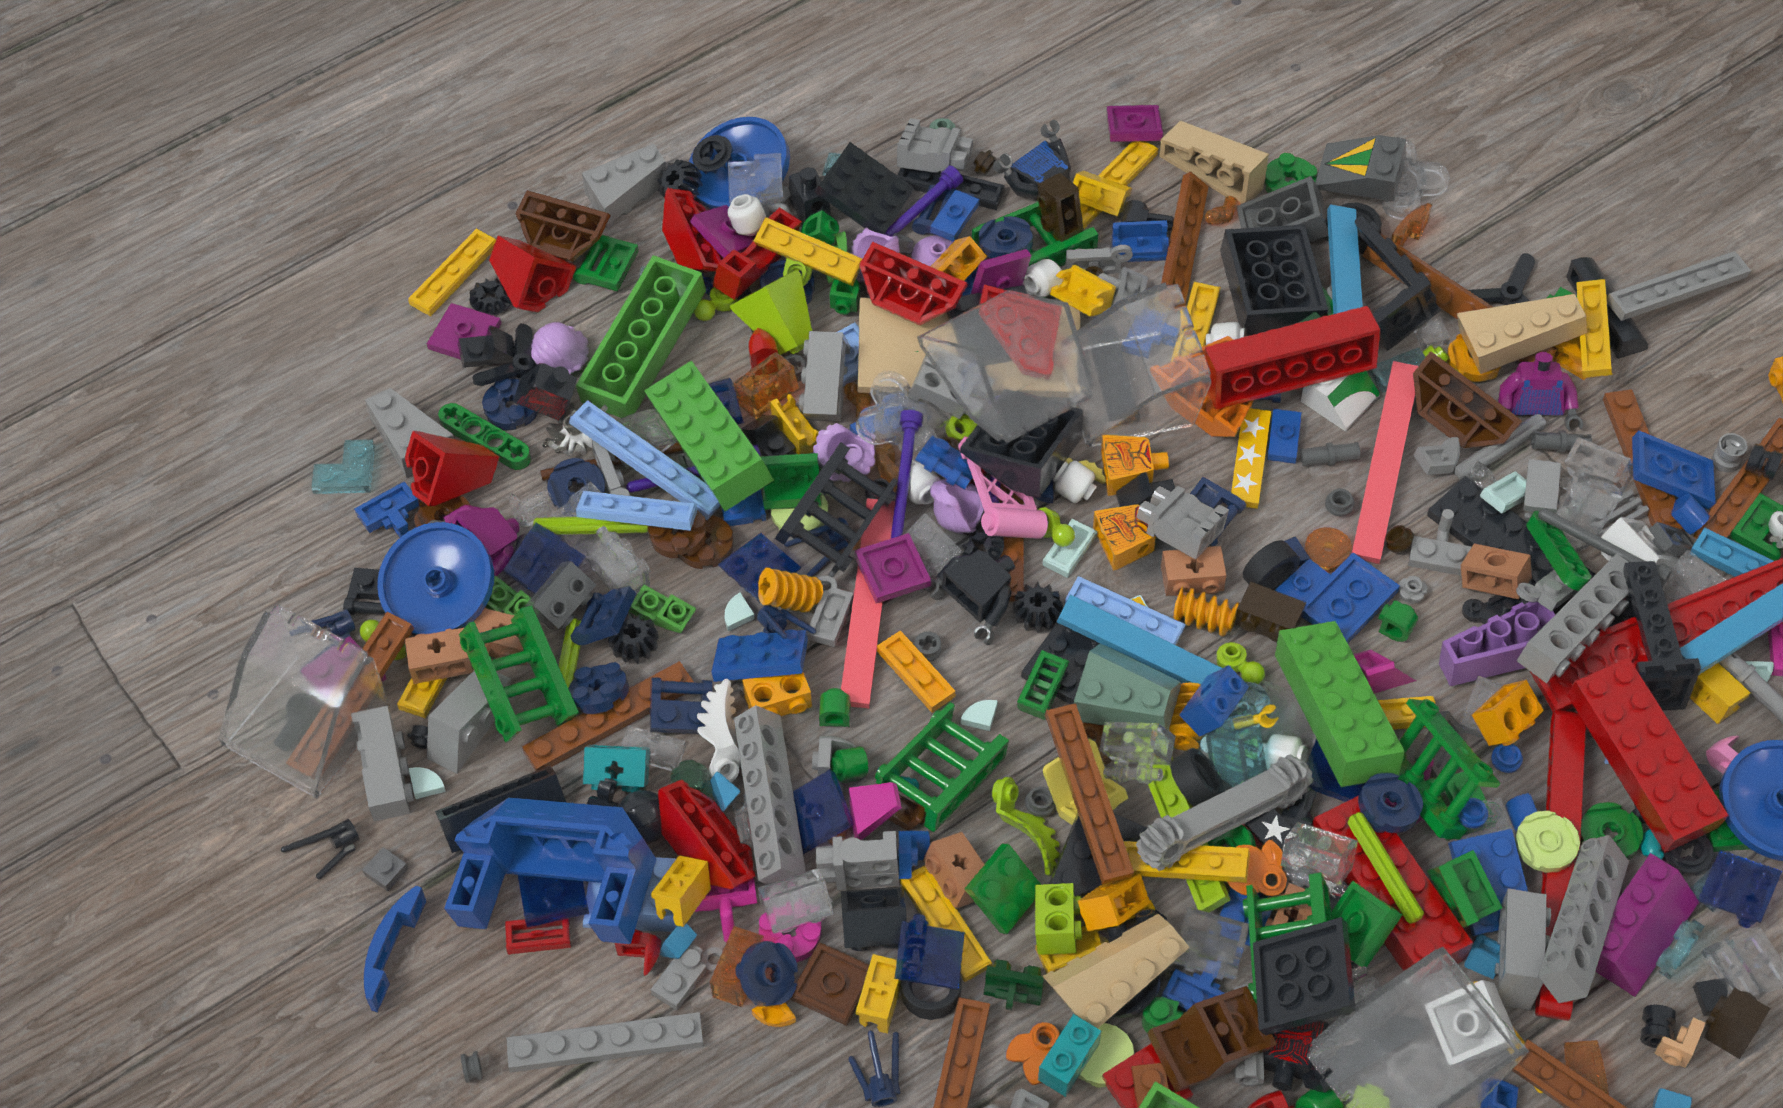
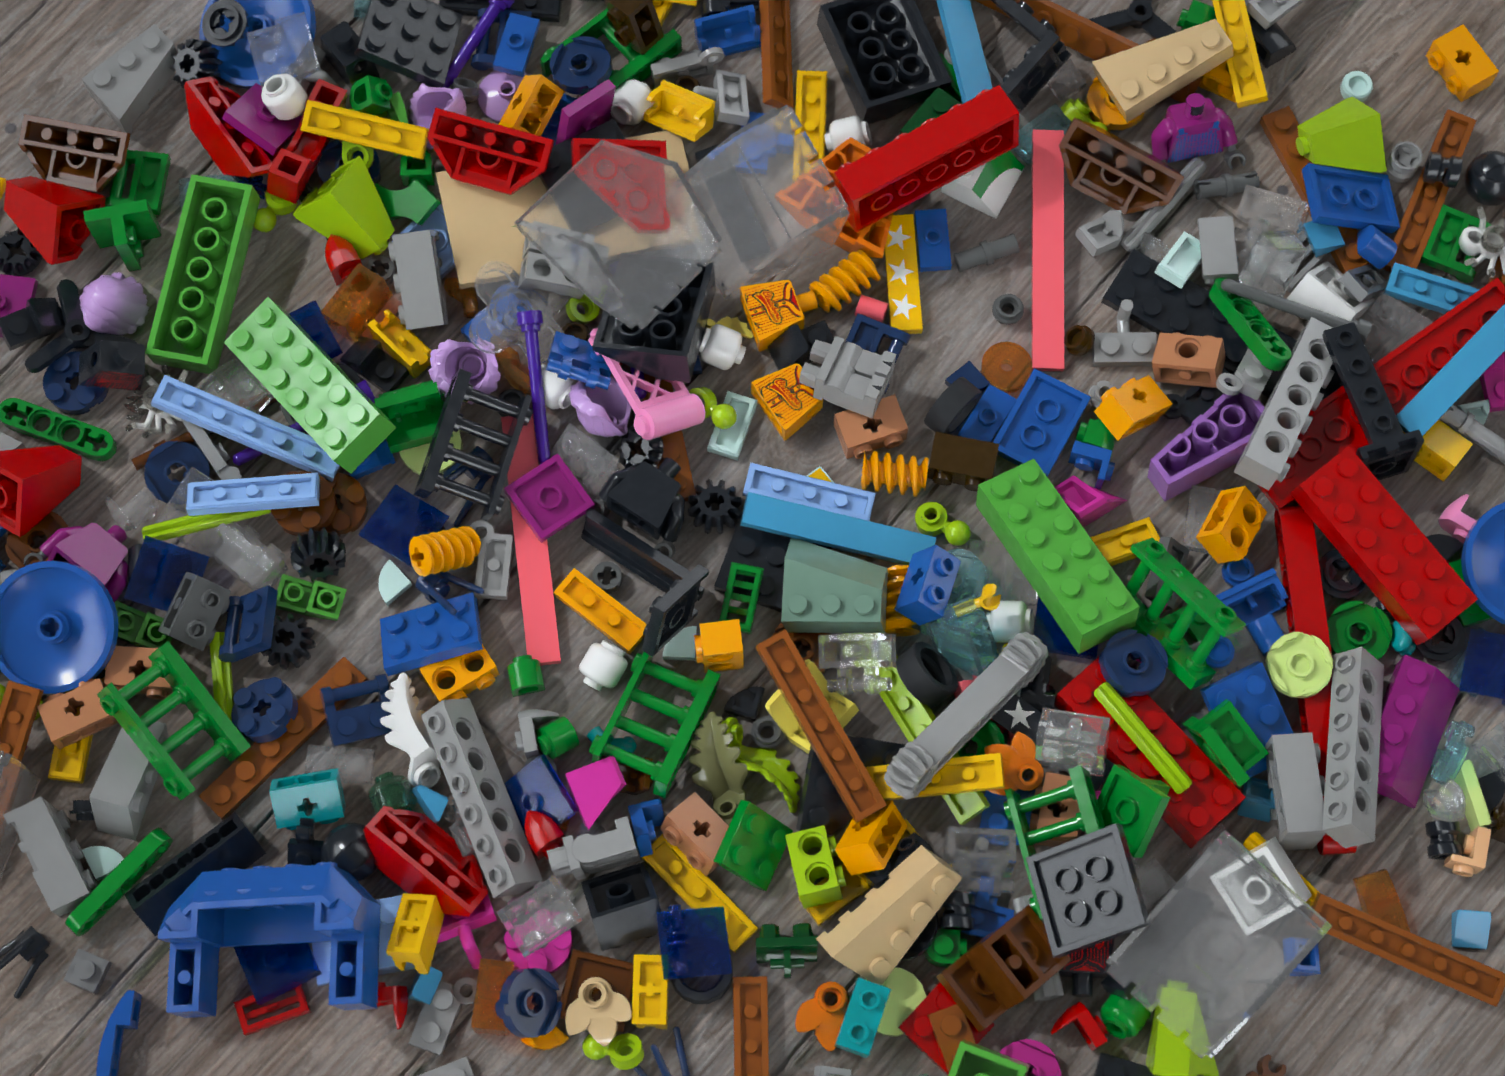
camera: 15 degrees left, 15 degrees up
(436, 797) = (118, 882): none -> green beam
(585, 290) = (124, 228): none -> green bracket
(690, 571) = (318, 554): none -> black gear
(814, 834) = (542, 833): none -> red plate
(827, 1001) = (597, 1016): none -> tan plate
(831, 318) = (412, 202): none -> green tile
(842, 1039) = (616, 1050): none -> lime plate
(906, 714) = (603, 665): none -> white head
(982, 660) = (681, 586): none -> black bracket
(988, 819) = (717, 766): none -> olive plant
(1014, 715) = (720, 646): none -> light orange brick
(1027, 774) = (746, 703): none -> black tile
(1179, 982) = (958, 912): none -> black wheel
(1196, 449) = (843, 280): none -> light orange piece
(1217, 476) = (872, 308): none -> coral hinge
(1390, 636) = (1090, 458): none -> blue bracket
(1436, 599) = (1132, 406): none -> light orange brick
(1518, 779) = (1256, 597): none -> blue hinge
(1592, 772) = (1340, 588): none -> black gear
(1641, 497) = (1323, 237): none -> dark azure slope
(1667, 989) = (1446, 803): none -> clear plate
(1677, 418) = (1344, 137): none -> lime slope
(1692, 990) = (1476, 808): none -> yellowish green tile
(1698, 387) = (1357, 85): none -> light aqua tile

